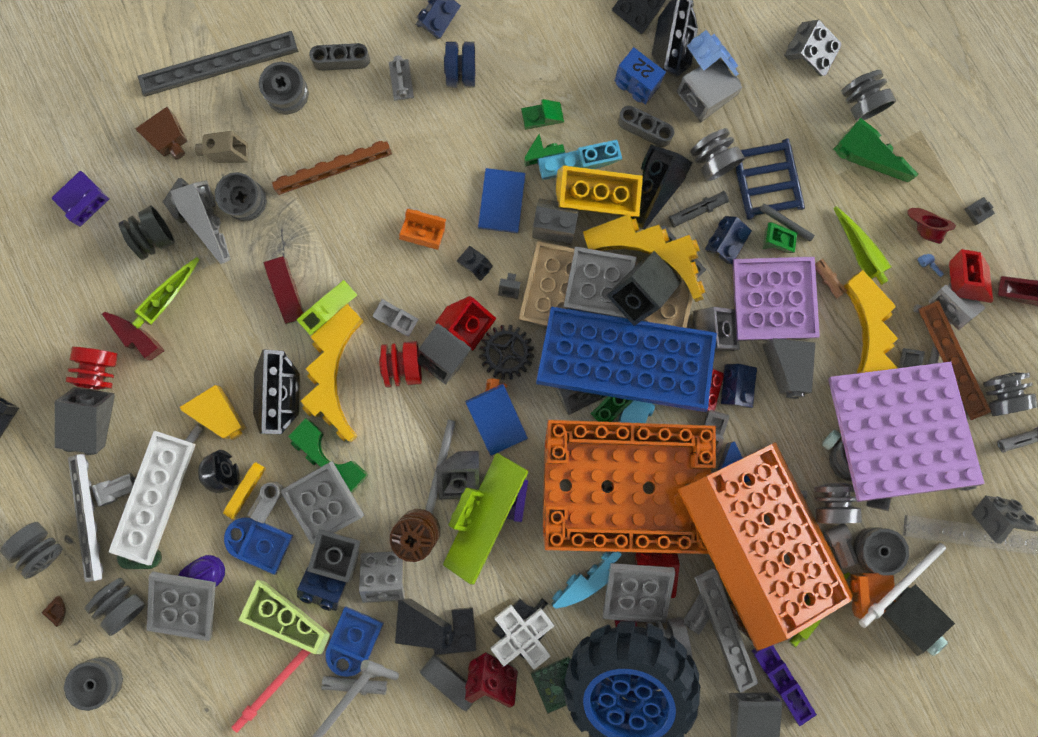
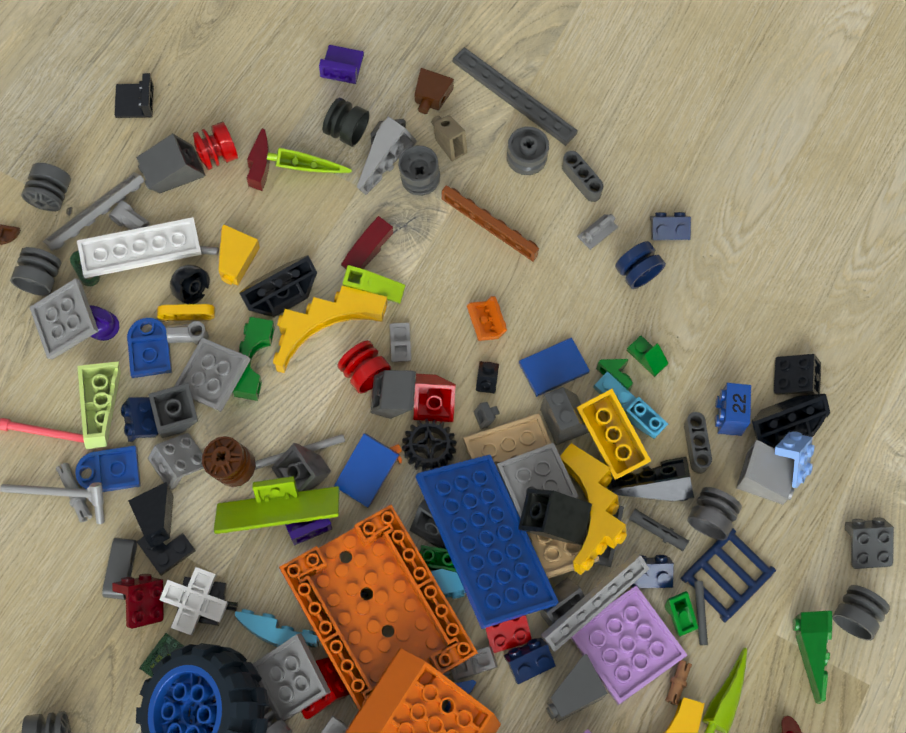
camera: 60 degrees right, 15 degrees down
(730, 301) = (595, 601): none -> light grey plate

